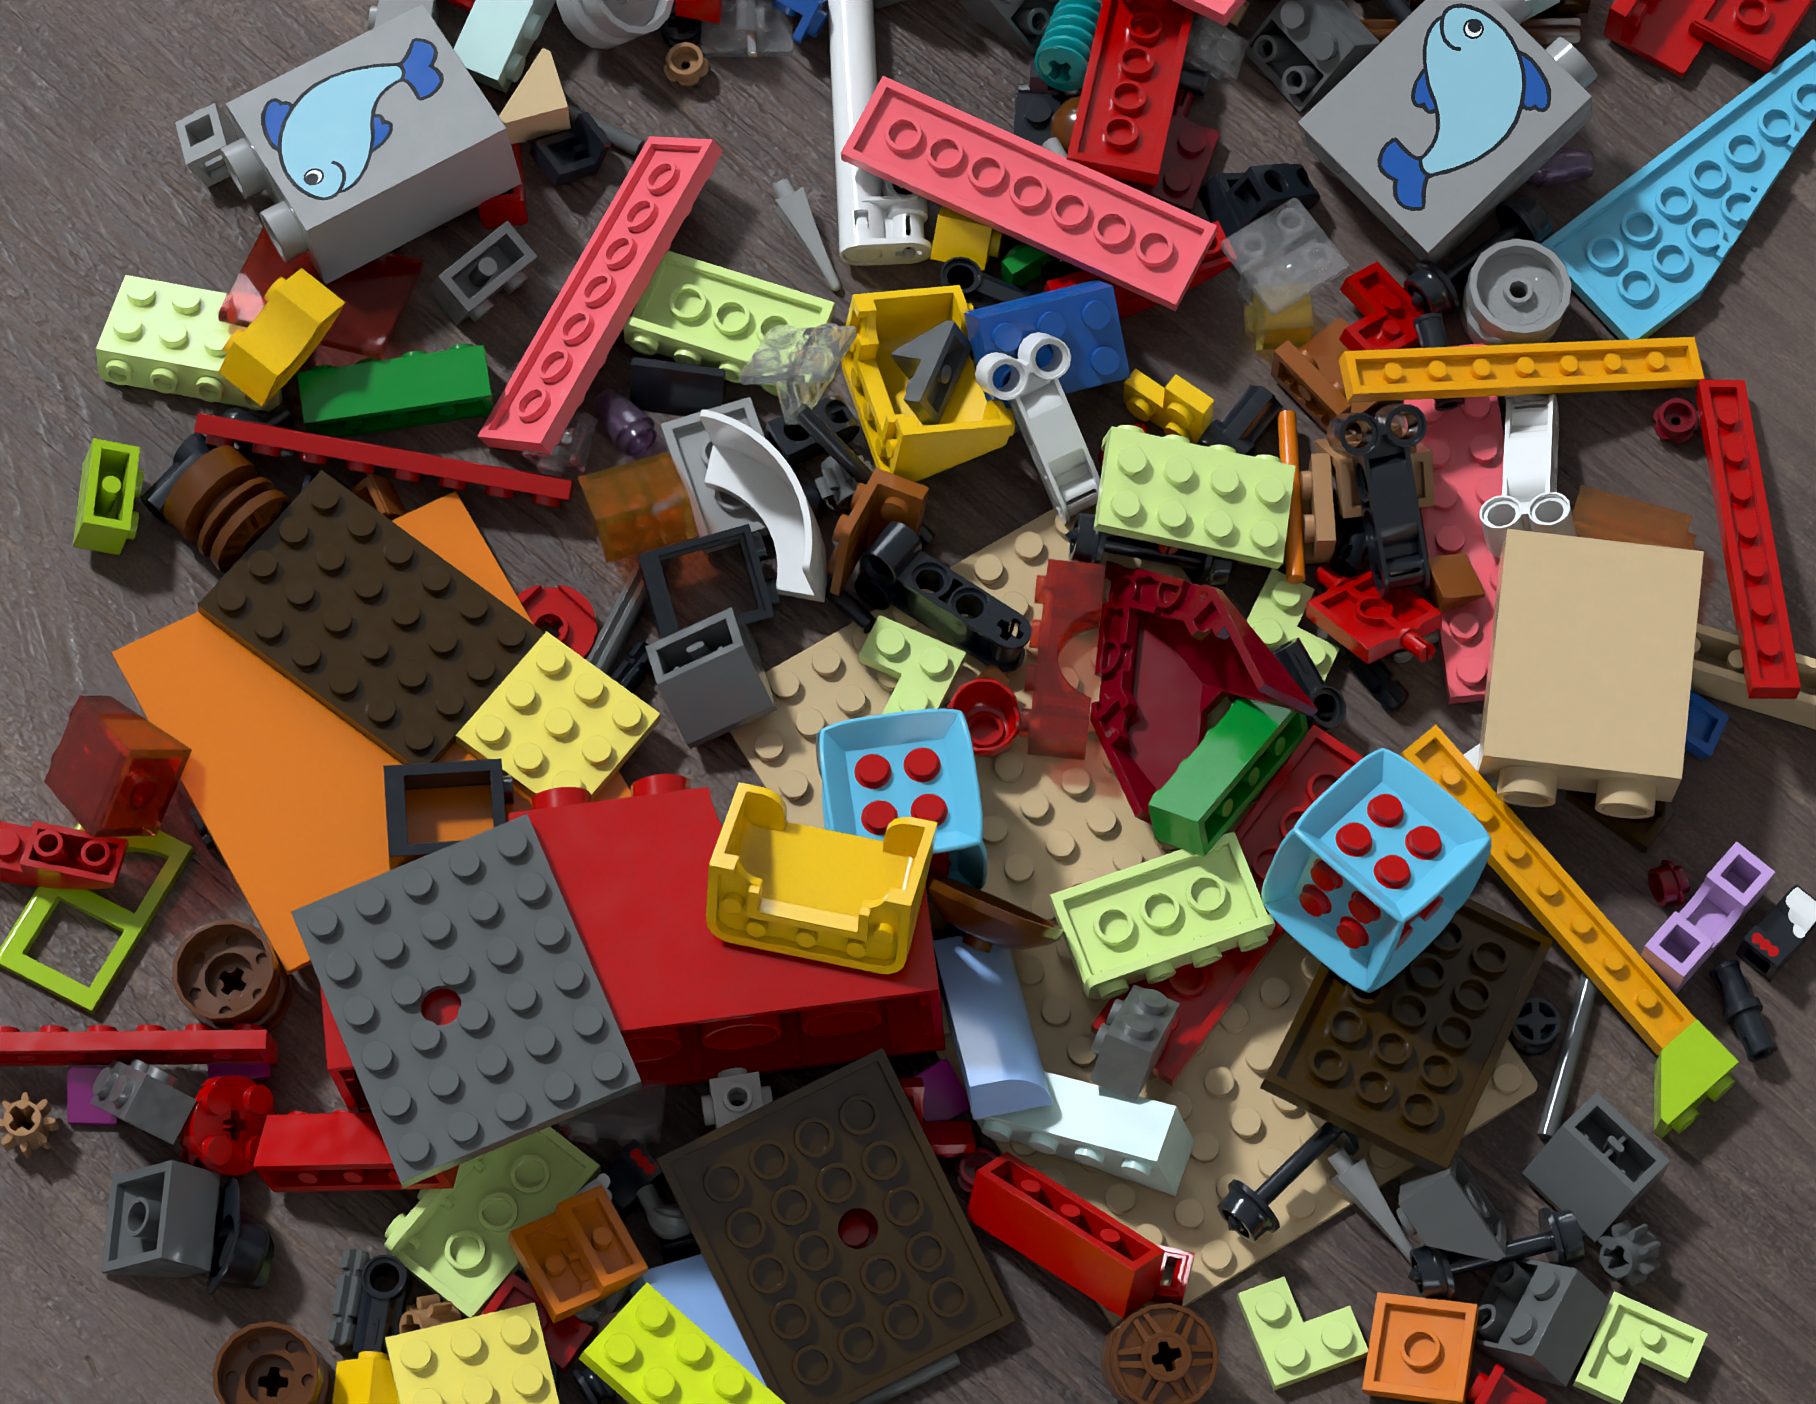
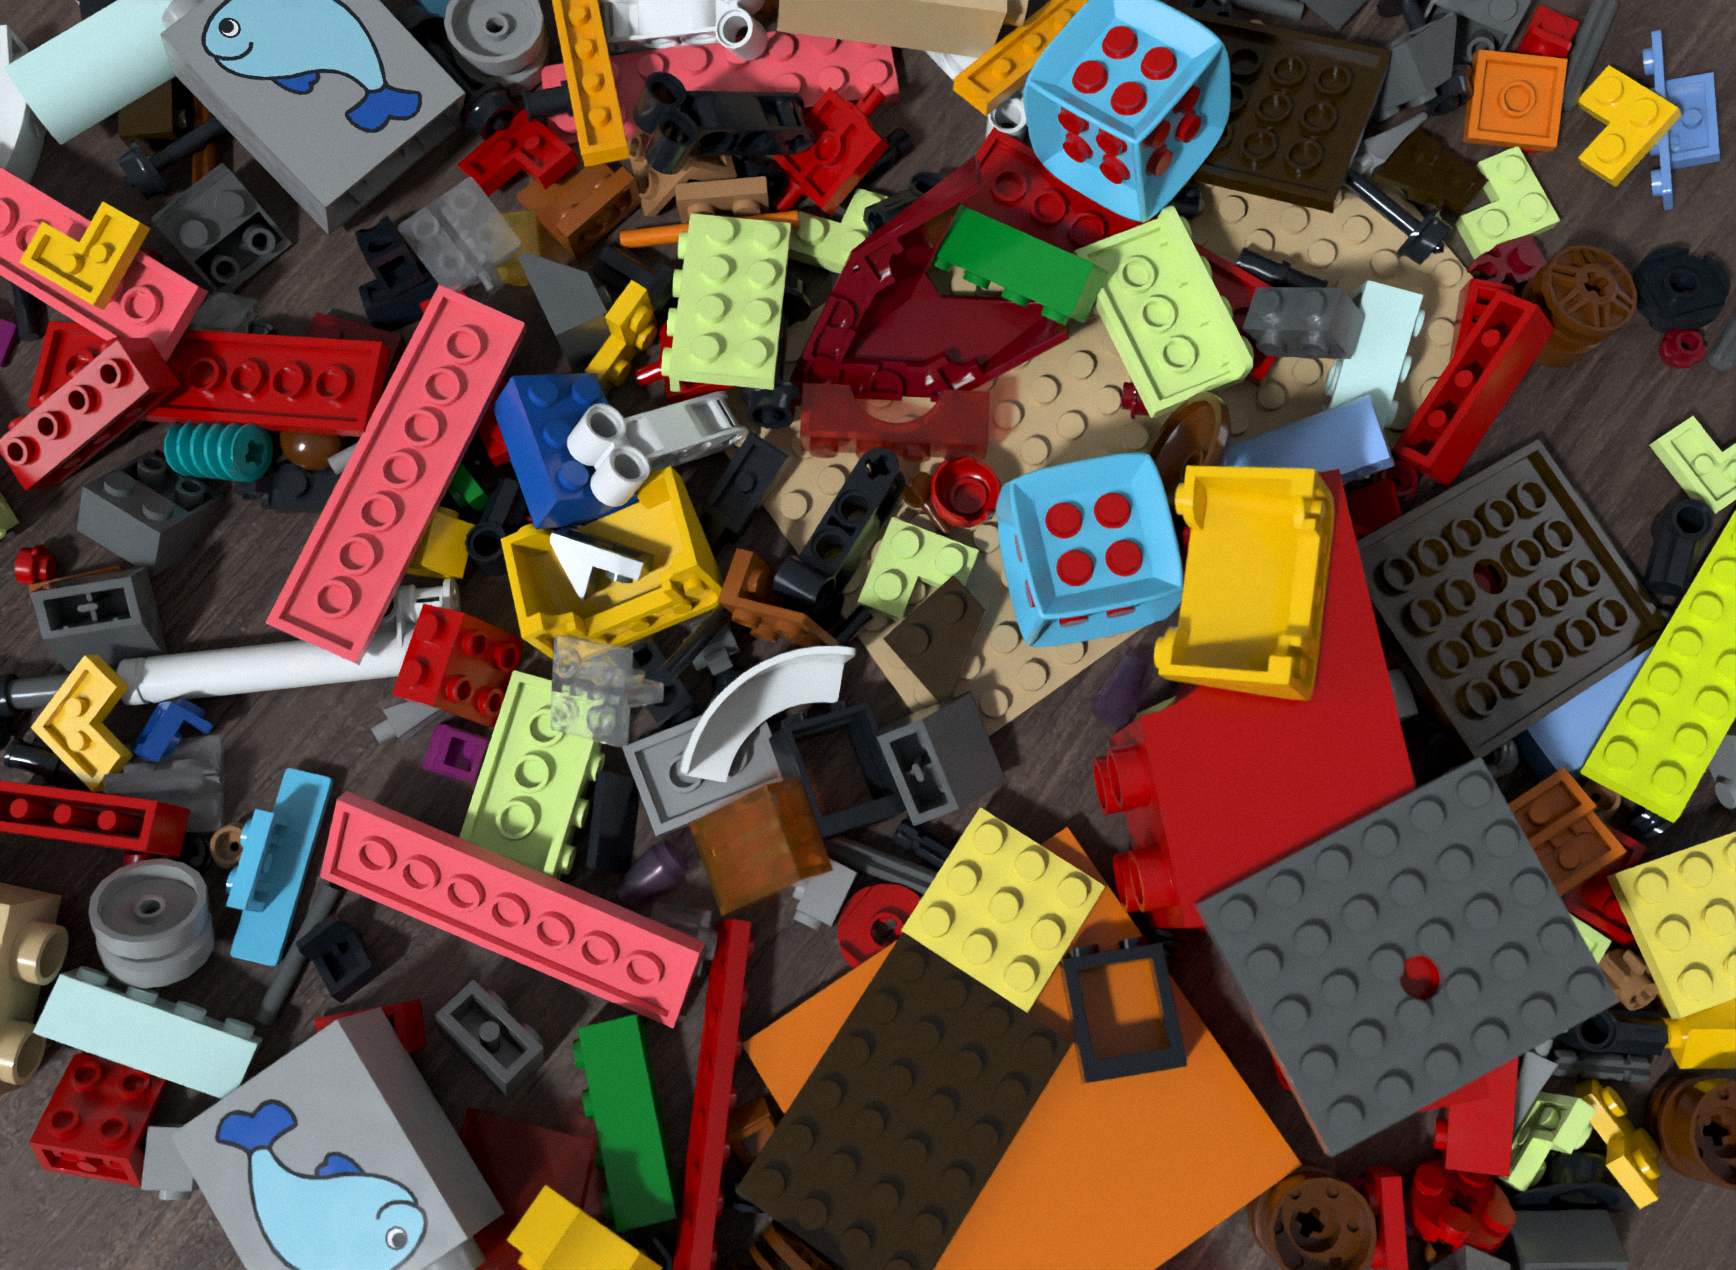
camera: 95 degrees left, 10 degrees up
(278, 1298) = (1630, 1152): none -> yellow plate
(296, 1222) = (1550, 1123): none -> yellowish green plate
(346, 1224) = (1531, 1077): none -> light grey piece
(537, 103) = (285, 996): tan slope -> none
(586, 571) = (823, 897): none -> light grey brick
(663, 97) = (275, 866): none -> medium azure bracket
(759, 254) = (455, 753): none -> magenta slope
(834, 686) = (939, 637): none -> dark brown wing
(836, 247) = (458, 665): none -> red bracket
(1001, 513) = (742, 491): none -> black hinge
(1202, 347) = (571, 306): none -> dark grey slope
(1211, 1062) = (1275, 272): none -> black pin
(1228, 1325) = (1510, 262): none -> dark red plate
(1291, 965) = (1187, 203): none -> black arm
(1336, 1247) = (1431, 174): none -> dark brown wing
(1453, 581) = (794, 78): dark orange slope -> none

